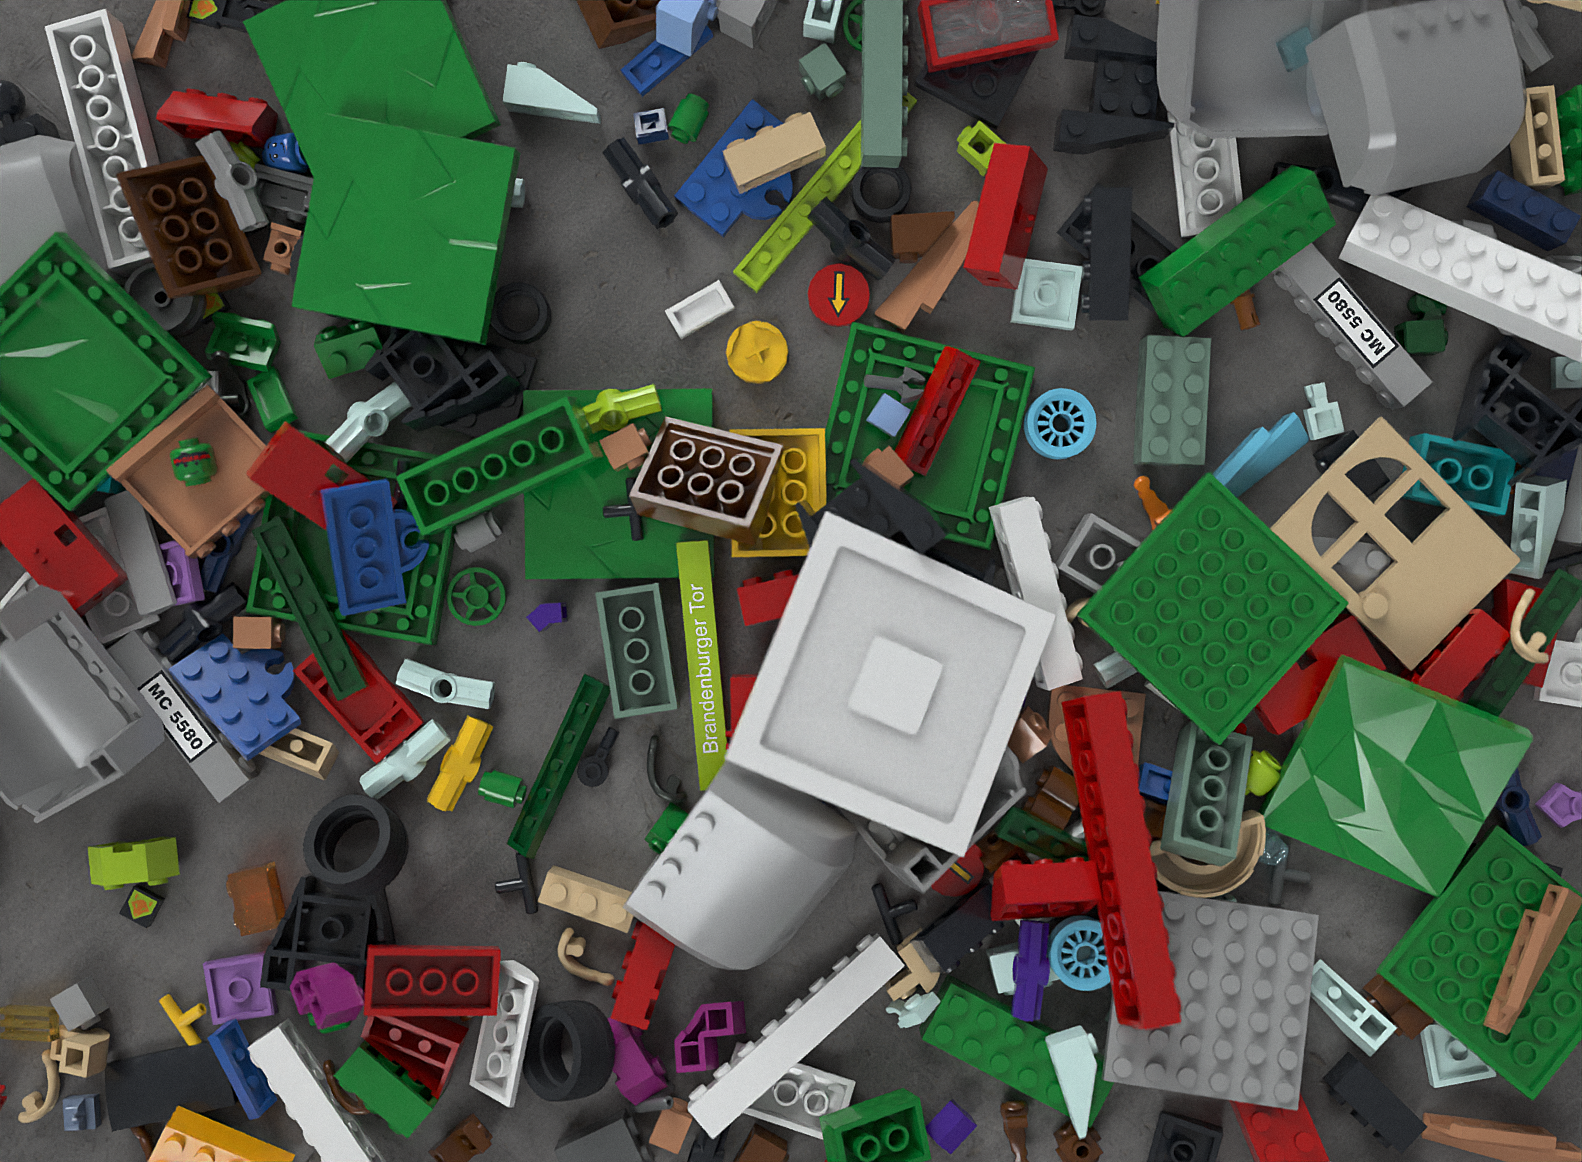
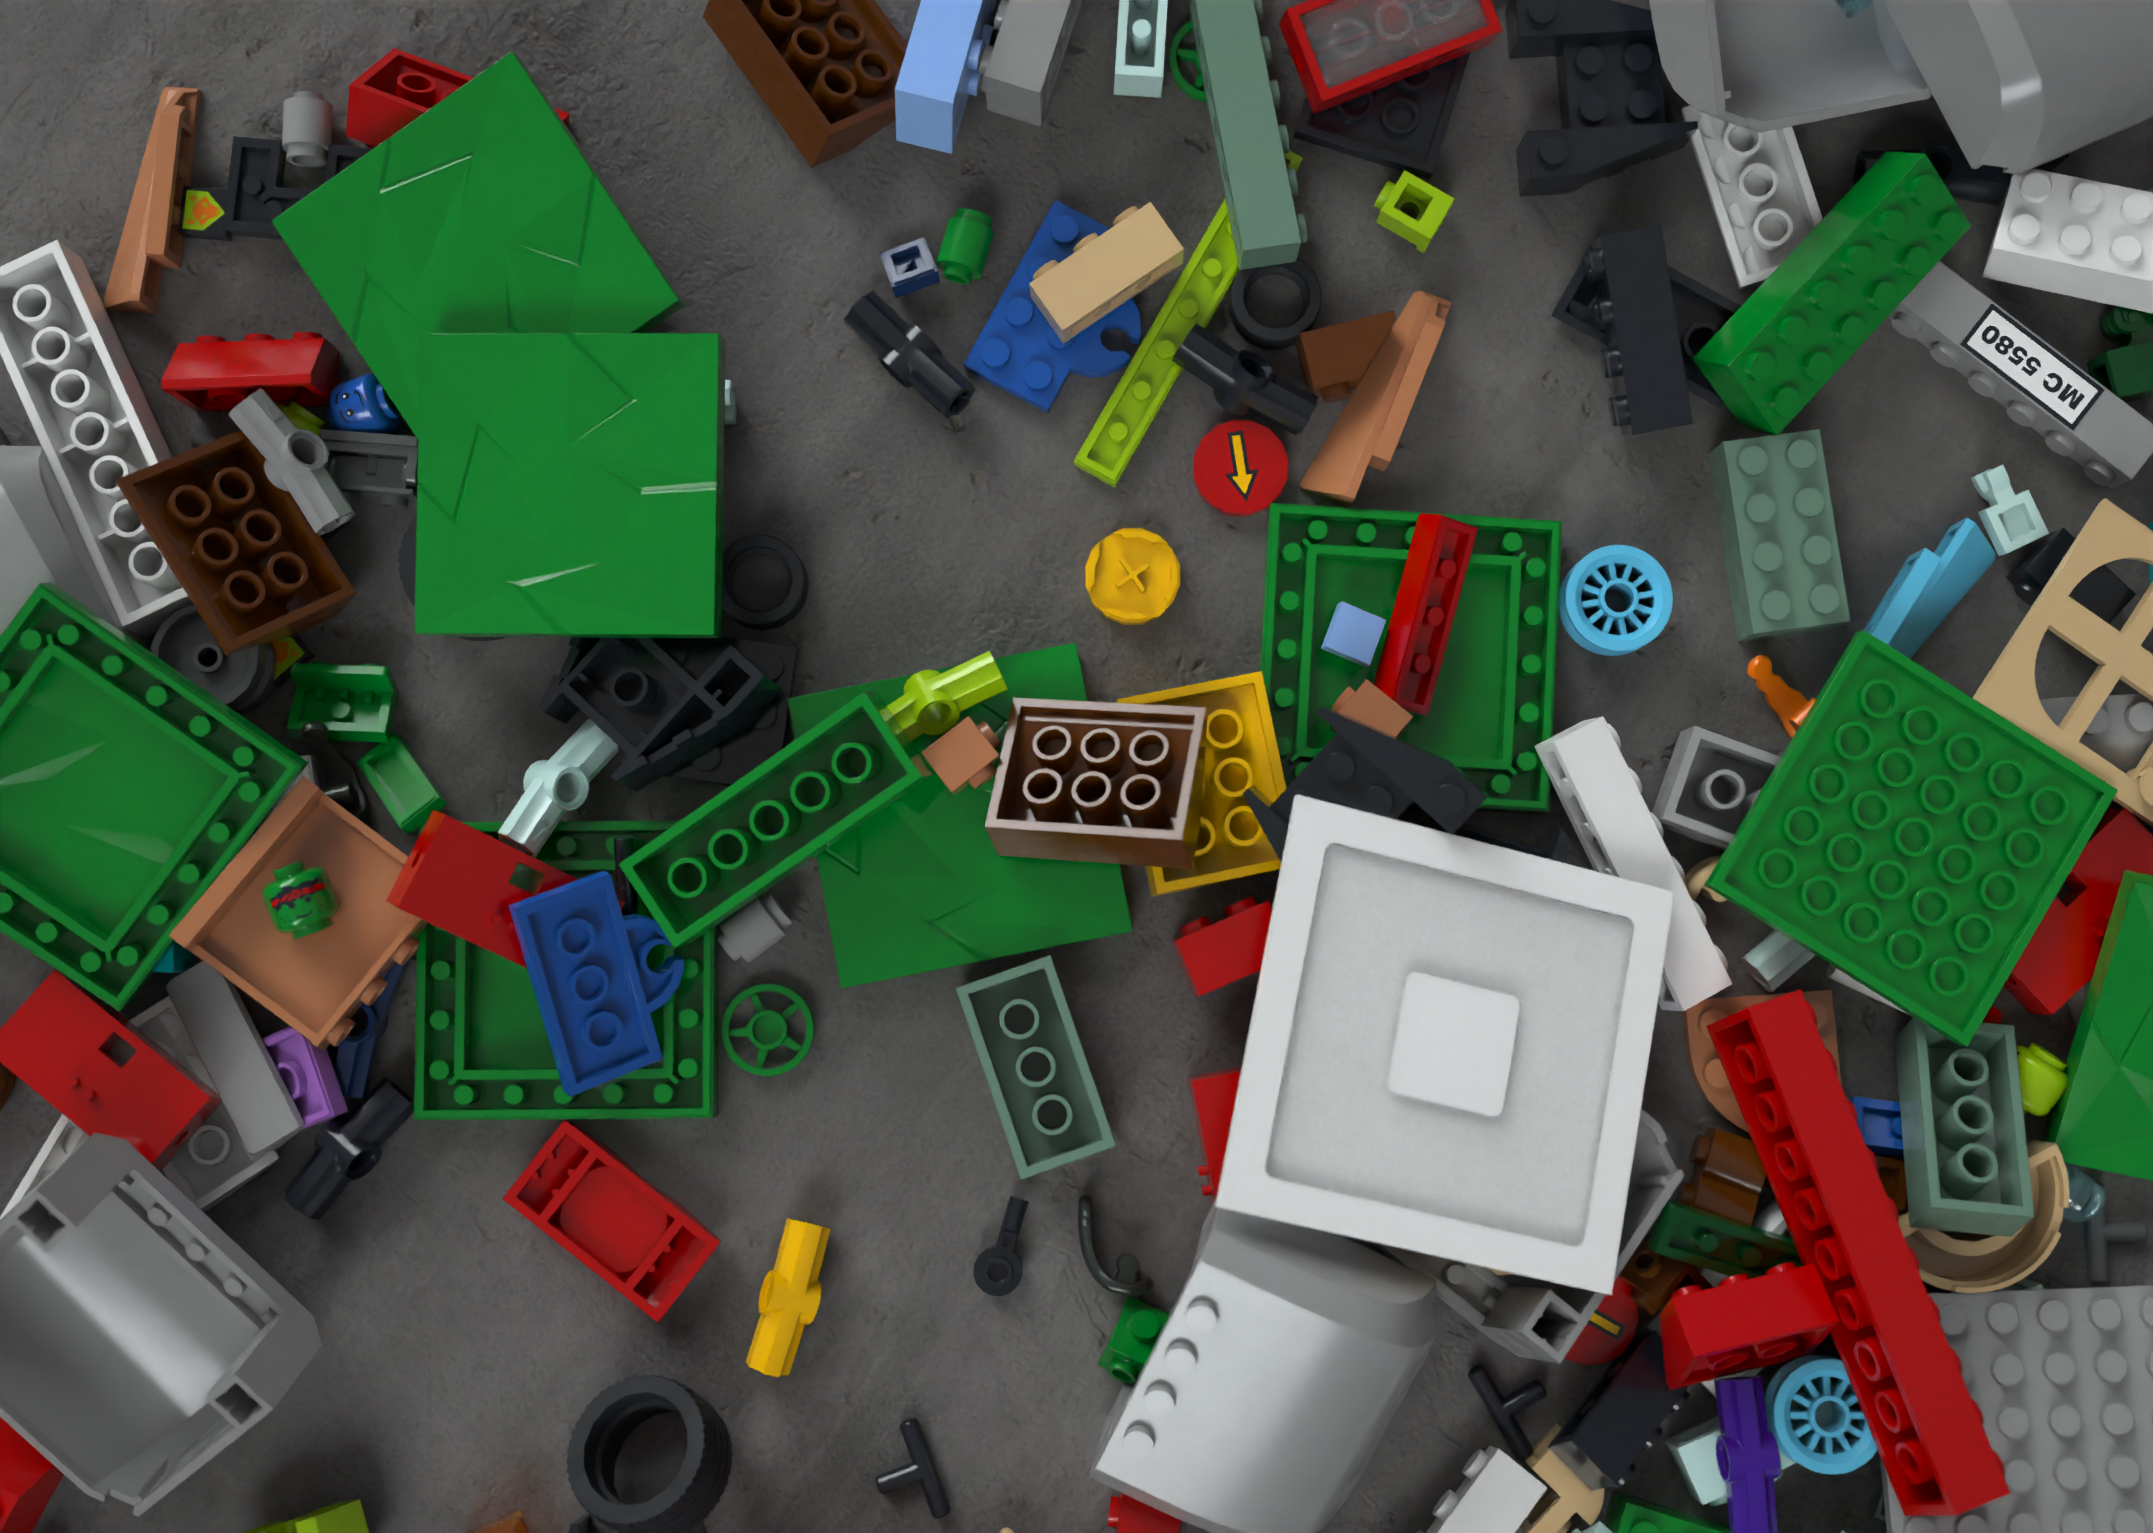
camera: 15 degrees left, 5 degrees down
(184, 723) = (348, 1308): light grey brick -> none
(240, 693) = (427, 1249): blue plate -> none
(258, 632) = (438, 1148): nougat brick -> none
(279, 236) = (375, 530): nougat brick -> none
(304, 753) = (509, 1317): tan brick -> none
(310, 608) = (516, 1095): dark green plate -> none
(347, 347) = (505, 681): green bracket -> none
(405, 760) = (701, 1309): light aqua piece -> none
(427, 681) = (713, 1176): light aqua piece -> none
(502, 788) = (862, 1324): green brick -> none
(537, 93) = (731, 249): light aqua slope -> none
(547, 615) = (885, 1037): dark purple piece -> none
(559, 766) = (944, 1273): dark green plate -> none
(586, 898) = (1027, 1475): tan brick -> none
(623, 510) = (981, 852): black piece -> none
(657, 63) = (901, 174): blue plate -> none
(699, 309) = (1033, 527): white tile -> none
(702, 657) = (1140, 1066): lime tile -> none
(822, 73) = (1153, 143): sand green brick -> none
(898, 384) = (1360, 584): dark grey bar -> none
(1005, 216) = (1473, 304): red brick -> none
(1028, 735) = (1669, 1086): nougat brick -> none
(1047, 295) = (1555, 409): light aqua plate -> none
(1246, 311) = (1861, 380): dark orange pin -> none

